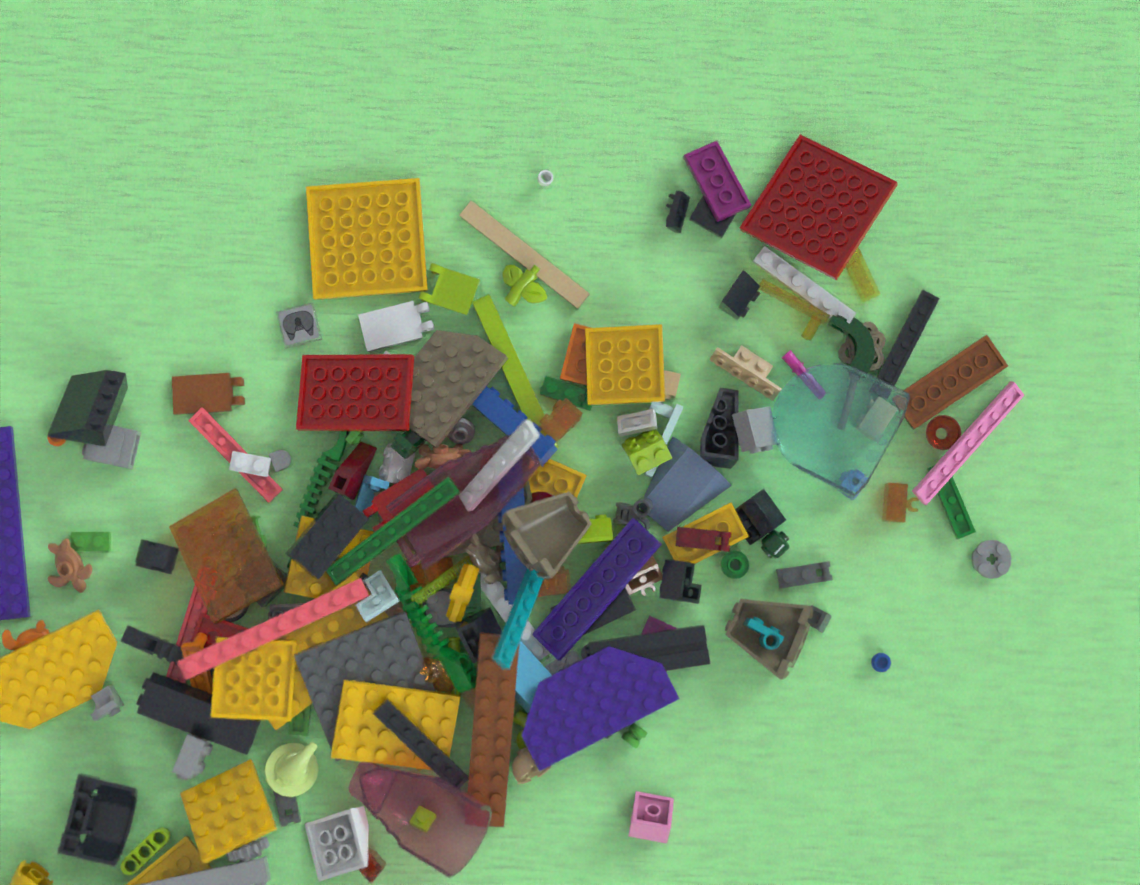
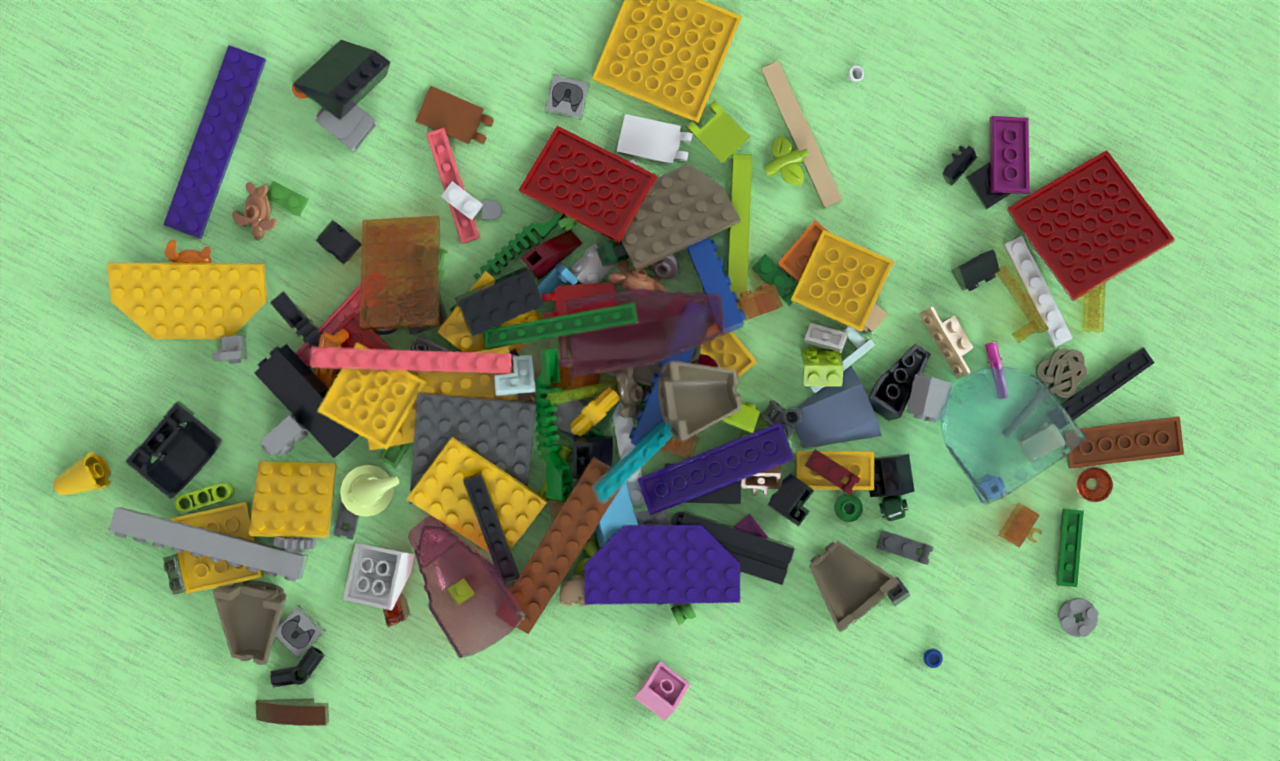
camera: 25 degrees right, 5 degrees up
(436, 675) = (535, 473): clear orange plate -> none
(499, 465) = (685, 316): white plate -> none
(757, 625) = (841, 572): teal plate -> none
(861, 339) = (1065, 364): dark green arch -> none
(968, 443) = (1112, 505): bright pink tile -> none

